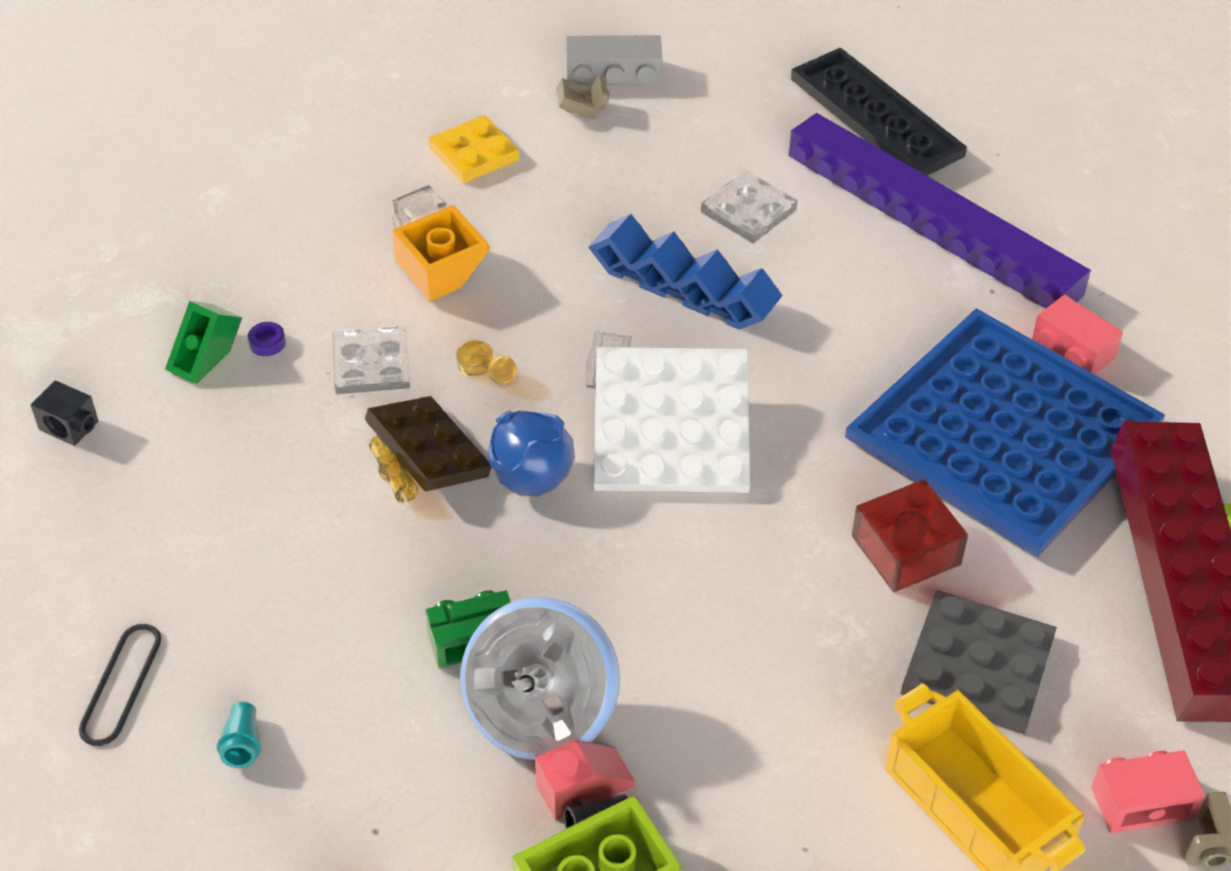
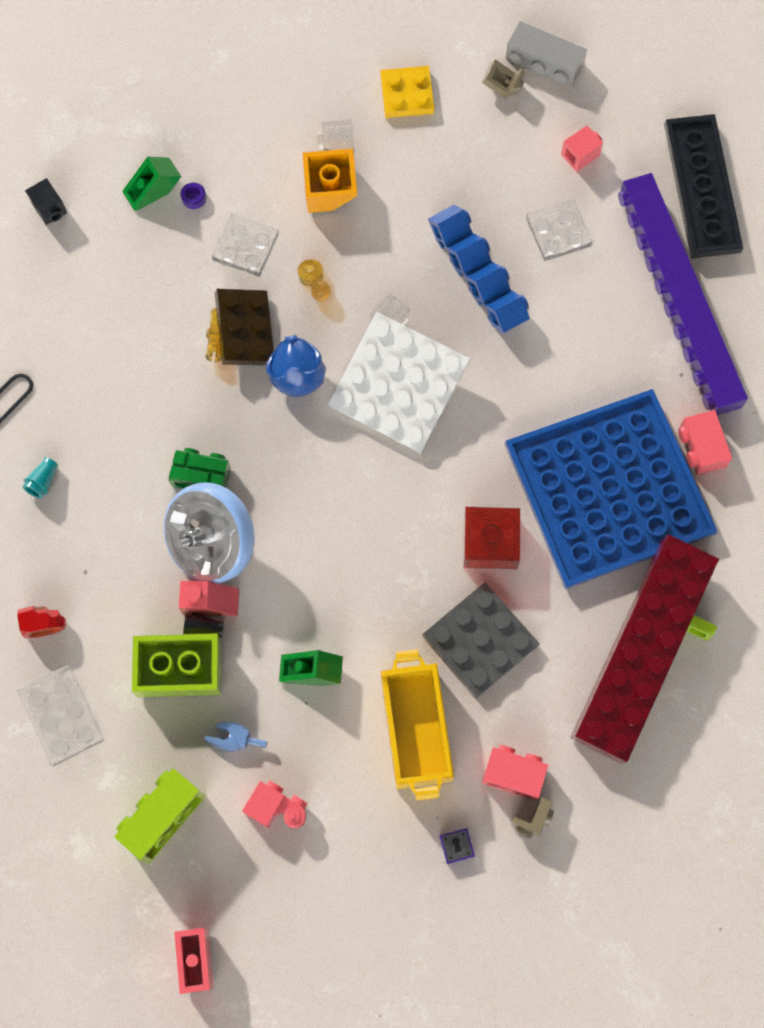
camera: 30 degrees right, 25 degrees up
(718, 125) = (582, 148): none -> coral brick
(785, 793) = (311, 668): none -> green slope

